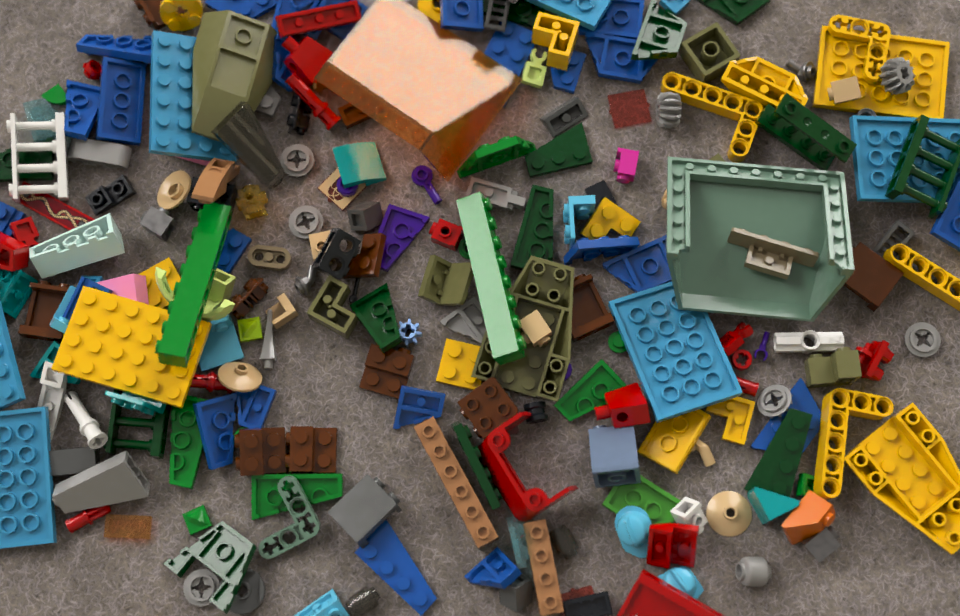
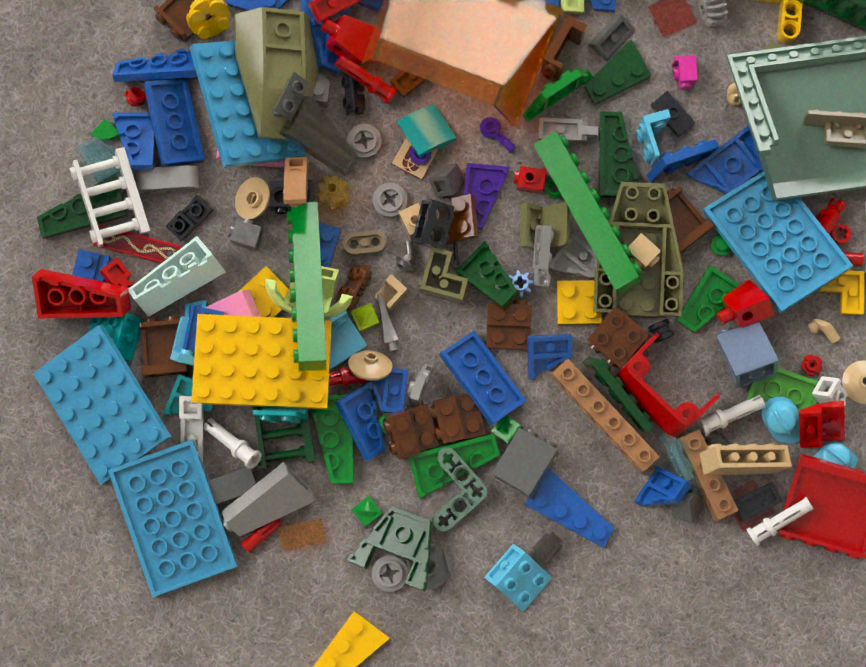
camera: 20 degrees left, 5 degrees up
(230, 99) = (291, 97): none -> dark grey hinge
(279, 410) = (417, 388): none -> light grey wing
(346, 416) = (482, 377): none -> blue plate
(356, 471) = (506, 429): none -> green tile
(436, 310) = (542, 256): none -> light grey hinge
(518, 100) = (570, 30): none -> reddish brown panel
(571, 513) = (721, 418): none -> white pin
(583, 560) = (745, 459): none -> tan brick
(608, 217) = (682, 126): yellow plate -> none
(674, 439) = (797, 326): yellow tile -> none
(677, 489) = (811, 371): none -> red plate
(763, 346) = (857, 218): dark purple hand -> none

